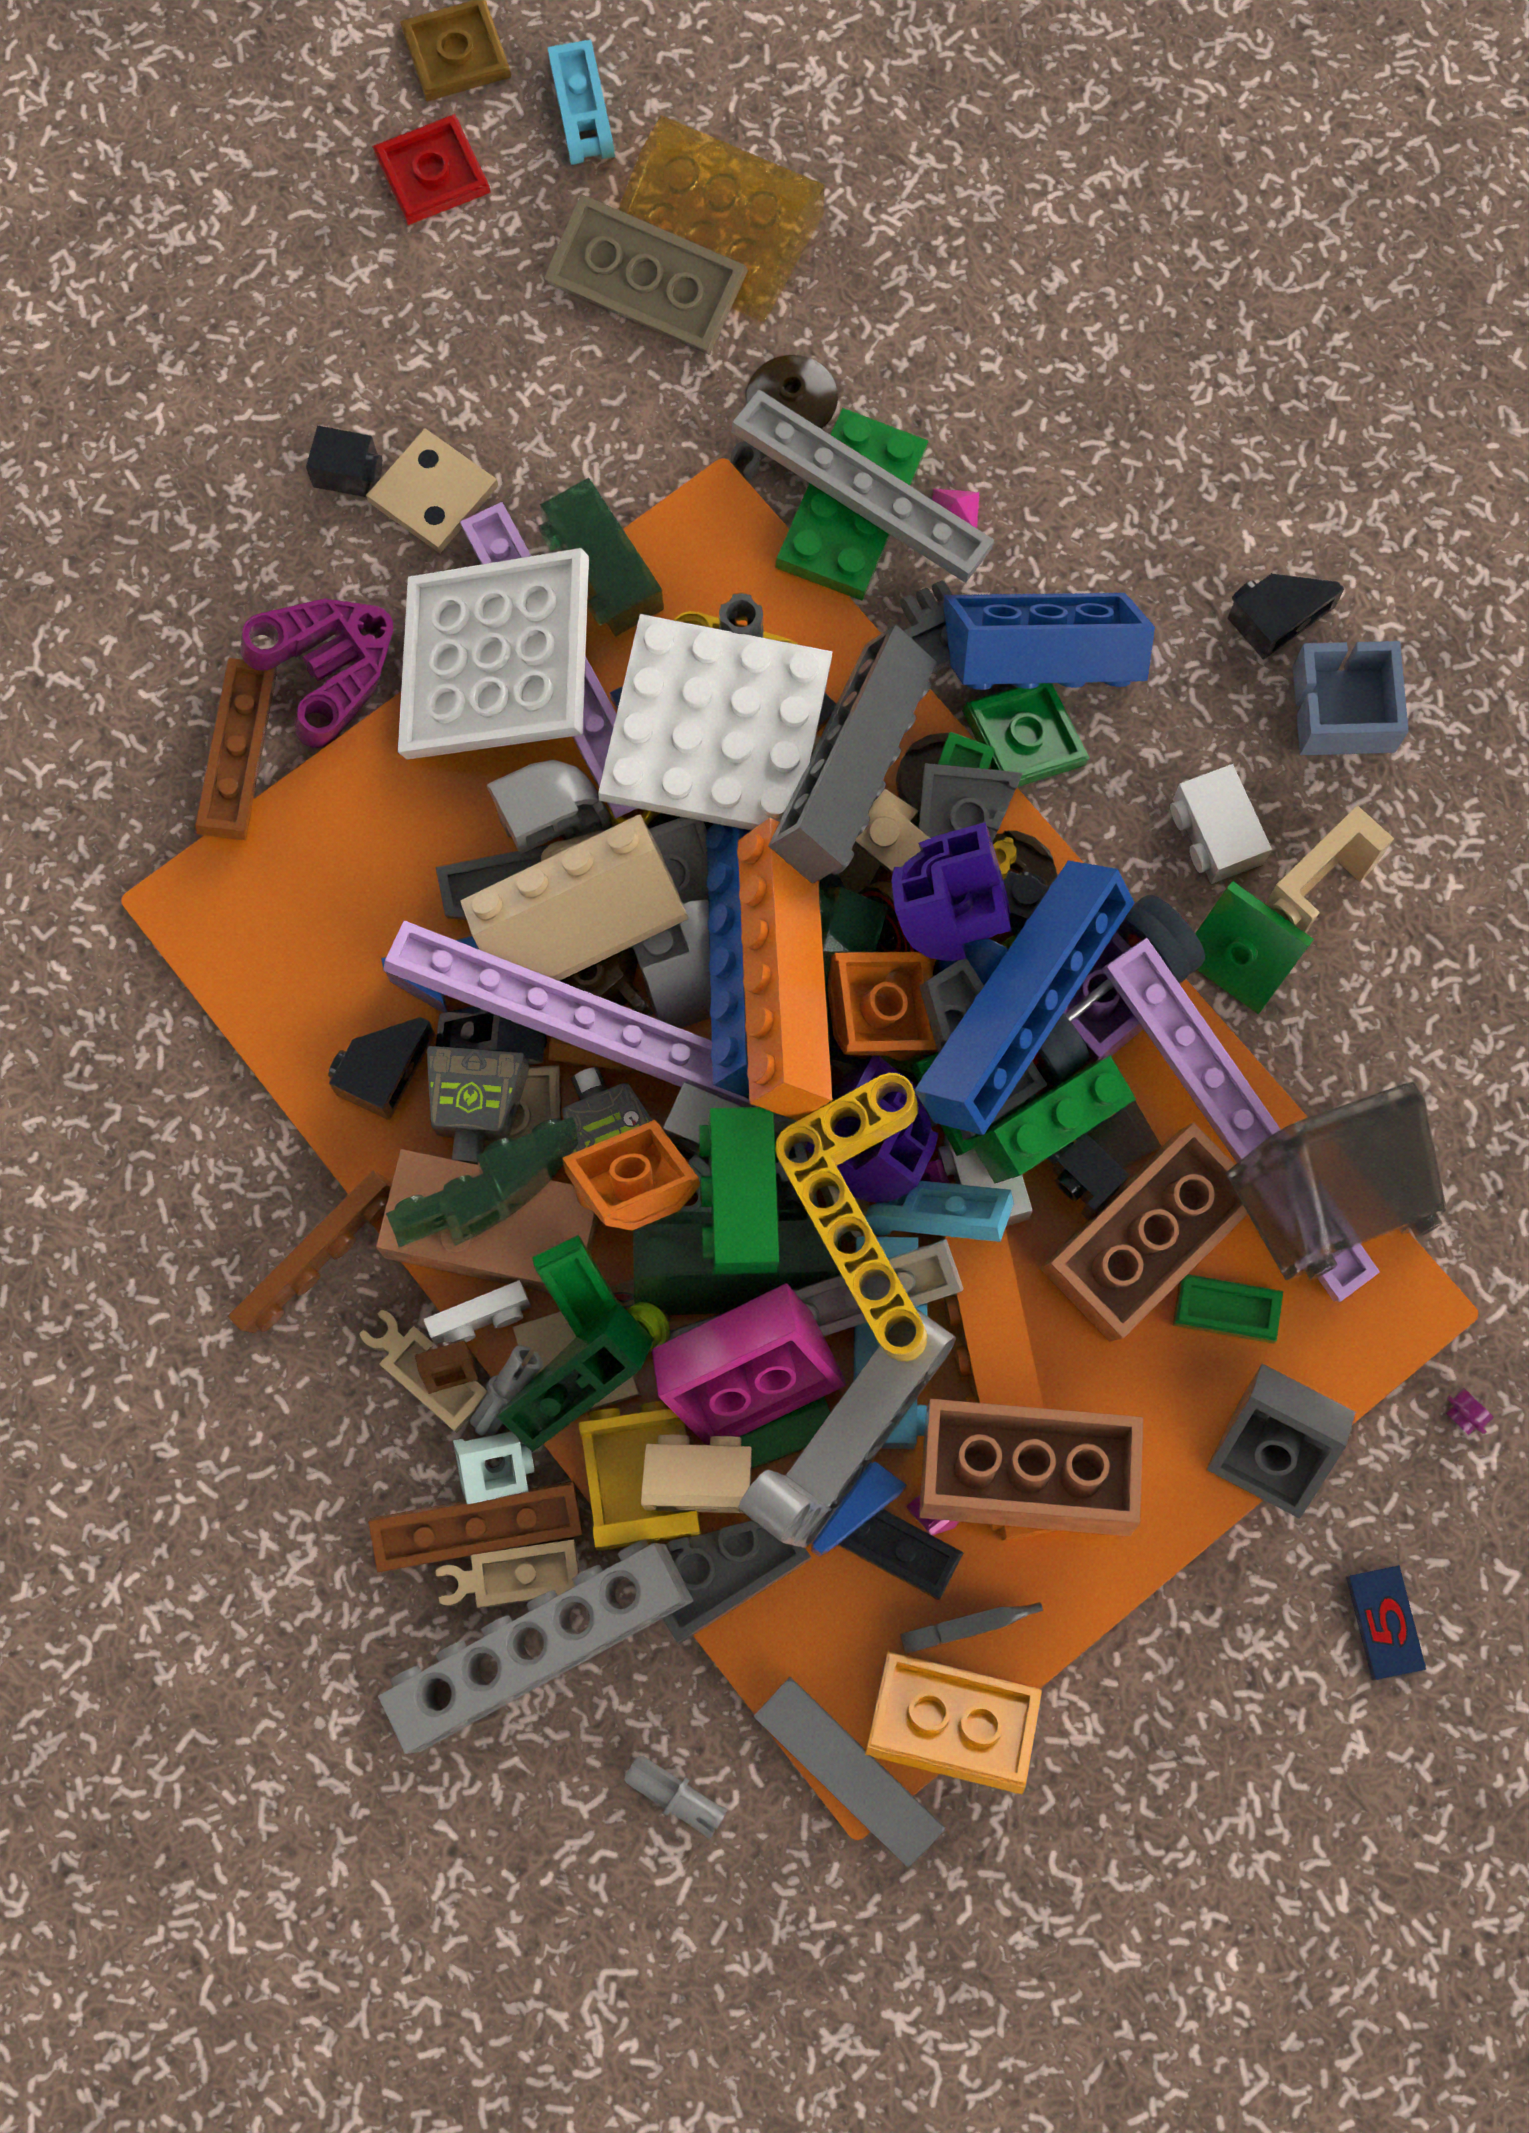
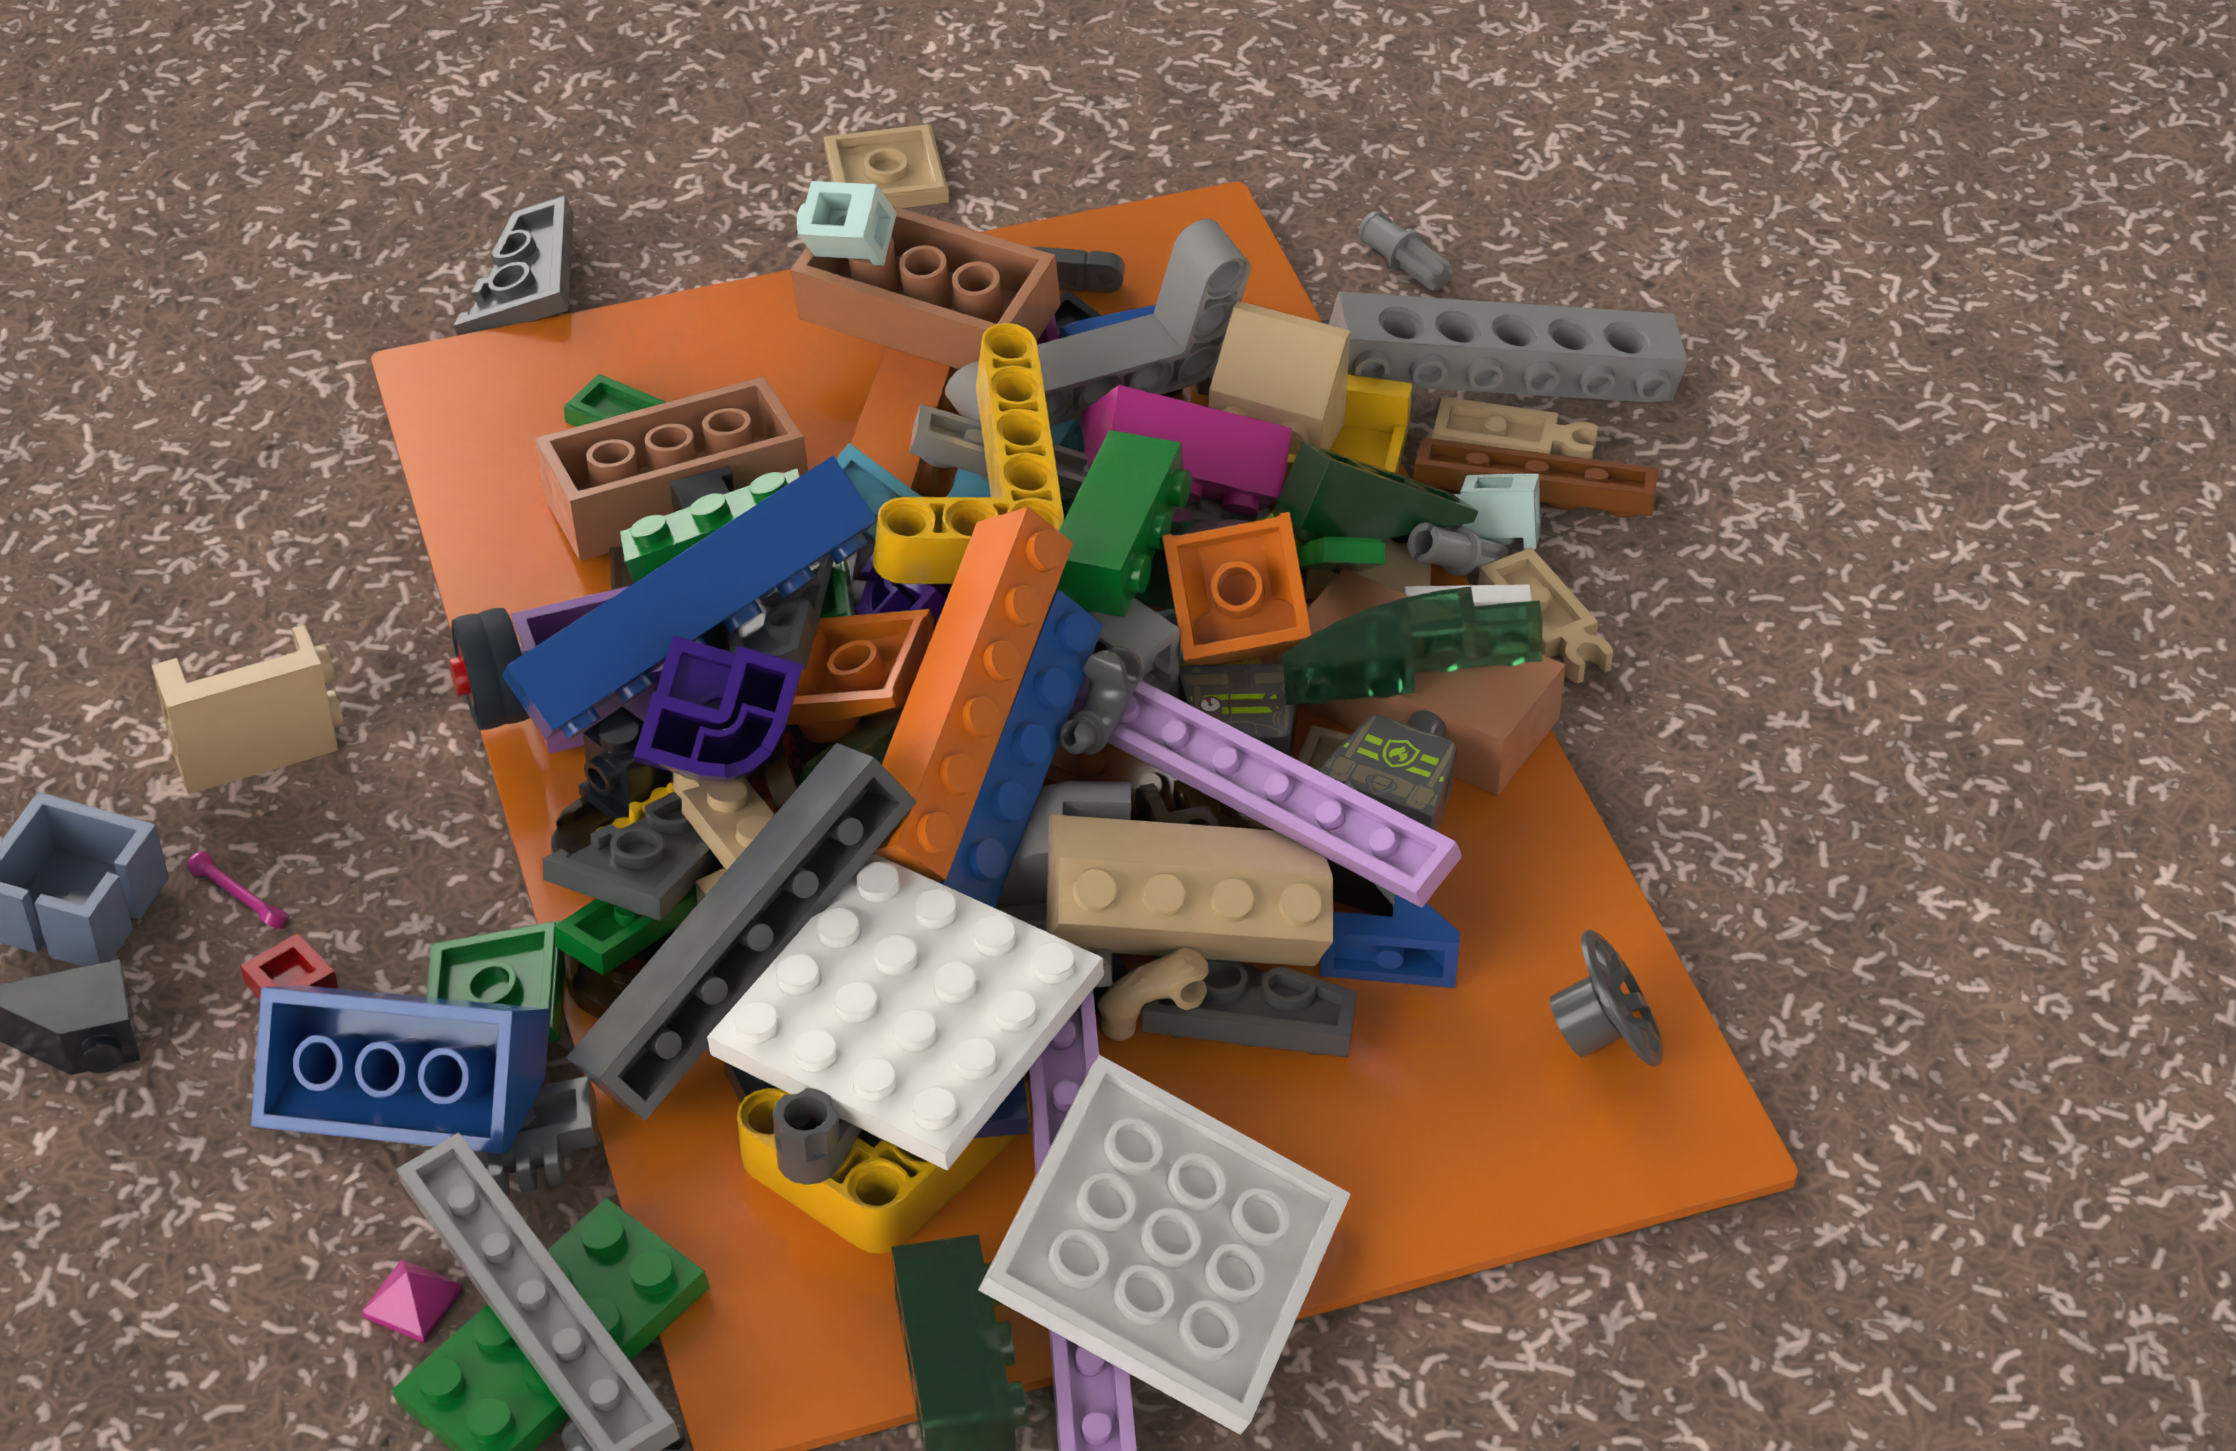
camera: 160 degrees left, 30 degrees down
(235, 751) = (1579, 1292): dark orange plate -> none
(272, 951) = (1597, 1010): none -> dark grey wheel
(300, 1268) = (1642, 727): dark orange plate -> none
(307, 625) = (1380, 1362): magenta connector -> none
(381, 1065) = (1505, 866): black slope -> none
(446, 1366) = (1522, 565): reddish brown plate -> none
(547, 803) = (1178, 1028): light grey brick -> none
(690, 1036) = (1112, 681): none -> dark grey piece
(849, 1773) = (1210, 195): dark grey slope -> none
(954, 1722) = (1104, 201): light orange tile -> none
(1109, 1451) = (846, 221): none -> light aqua brick
(1166, 698) = (288, 964): none -> plate
(1184, 1743) = (896, 159): none -> tan tile
(1211, 751) = (202, 865): none -> dark pink hinge
(1211, 1077) = (516, 509): lavender plate -> none
(1220, 824) = (323, 821): white brick -> none
(1249, 947) = (386, 680): green plate -> none
(1282, 1441) = (643, 299): dark grey slope -> none
(1343, 1180) = (491, 390): clear smoke windscreen -> none
(1385, 1623) = (636, 191): dark blue tile -> none
(1410, 1461) = (528, 272): none -> dark grey wing
(1468, 1412) = (441, 292): magenta plate -> none

